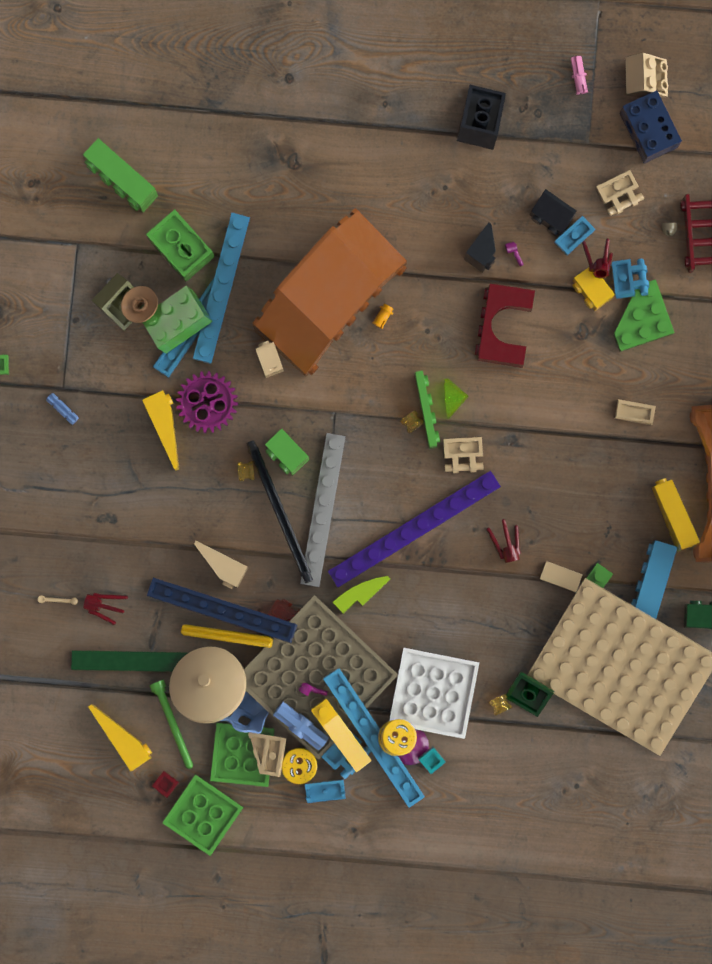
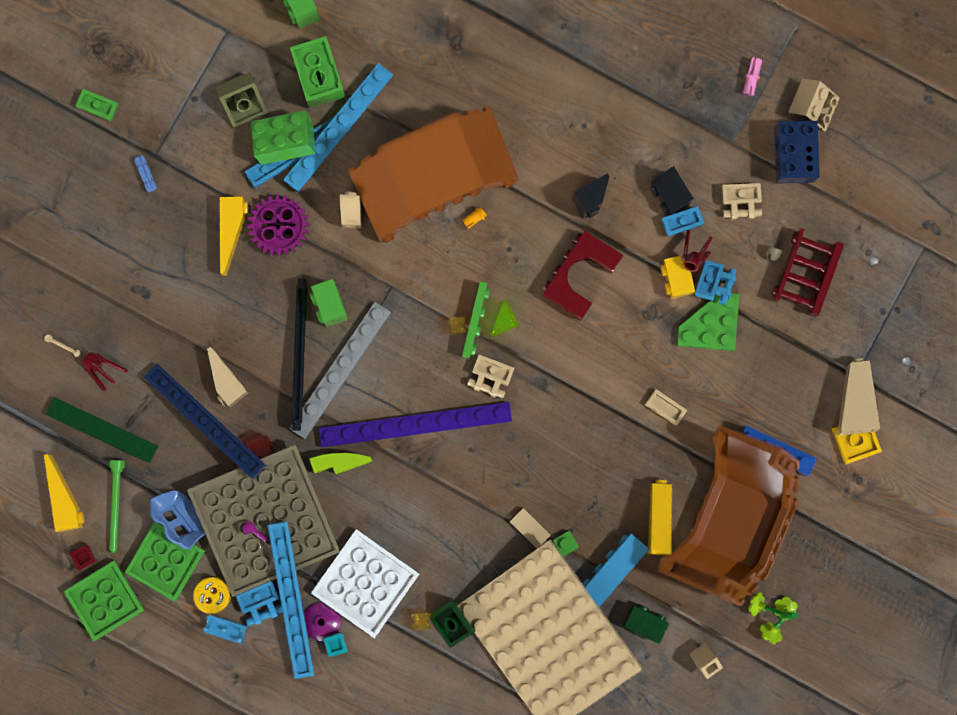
camera: 20 degrees right, 0 degrees up
(134, 299) = (251, 104): medium nougat dish -> none
(207, 685) = (160, 484): tan dish -> none
(227, 636) = (199, 446): yellow axle -> none
(246, 471) = (285, 303): clear yellow wheel -> none
(268, 752) = (188, 571): tan wing -> none
(300, 726) = (228, 559): medium blue piece -> none
(341, 735) = (261, 583): yellow slope -> none
(397, 737) = (311, 609): yellow head -> none
(481, 117) = (645, 75): black slope -> none
(511, 552) = (492, 486): dark red plant -> none
(512, 247) = (620, 207): magenta hand -> none

